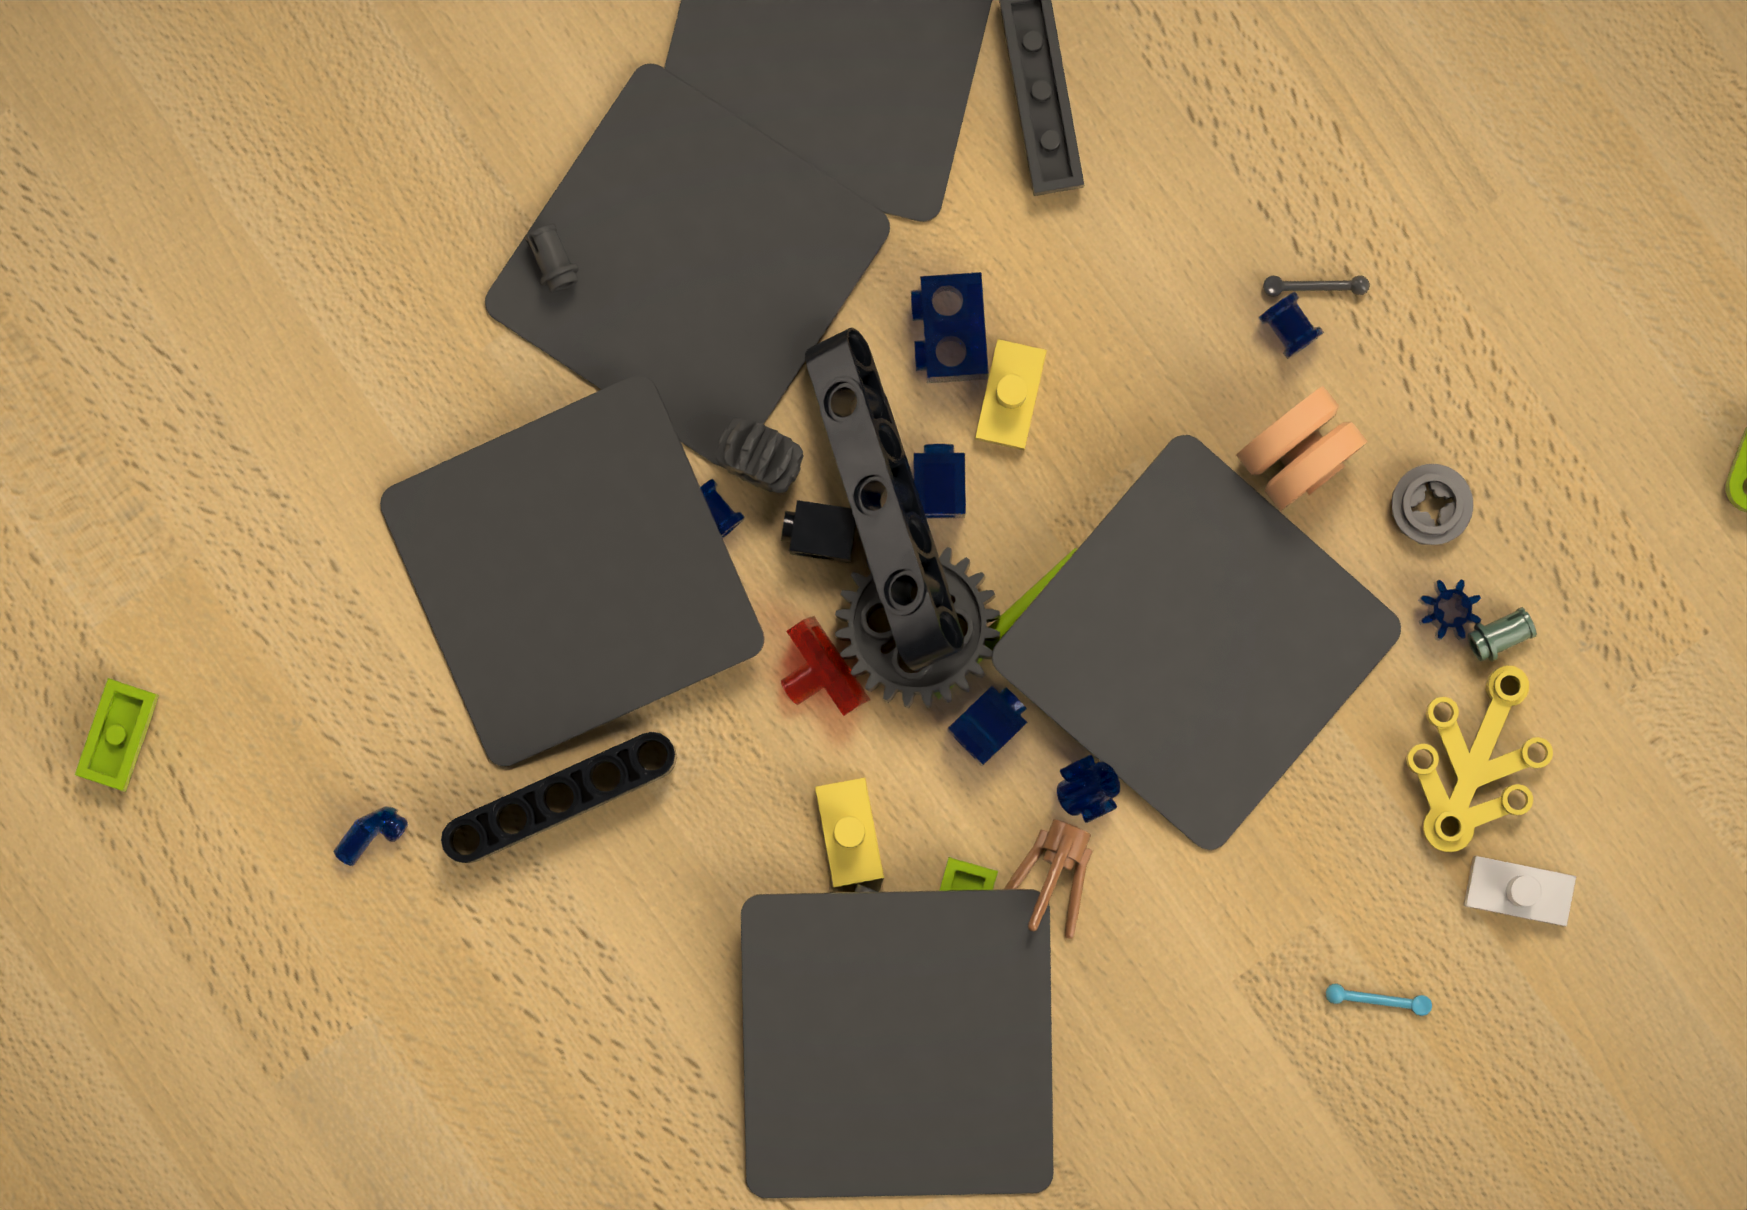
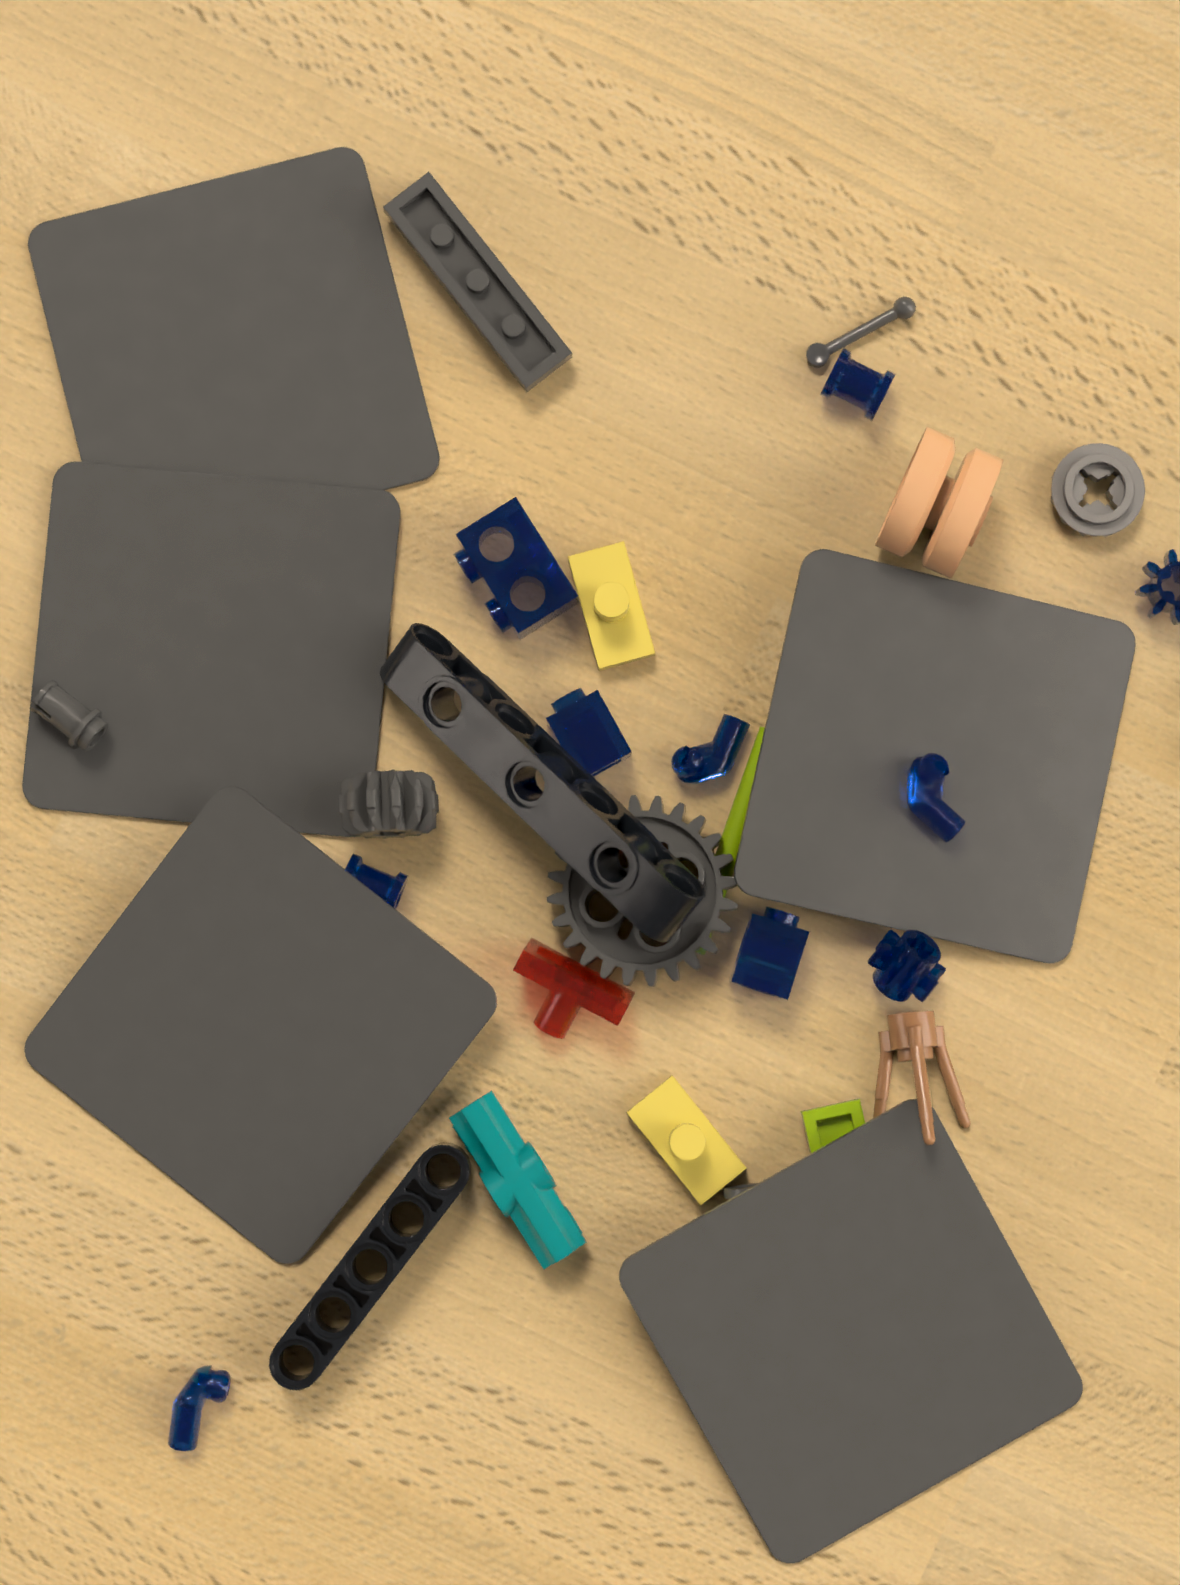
camera: 25 degrees left, 0 degrees up
(705, 792) = (517, 1180): none -> teal piece
(820, 531) = (492, 848): black brick -> none
(1024, 552) = (713, 758): none -> clear blue arm
(1173, 665) = (925, 796): none -> clear blue arm

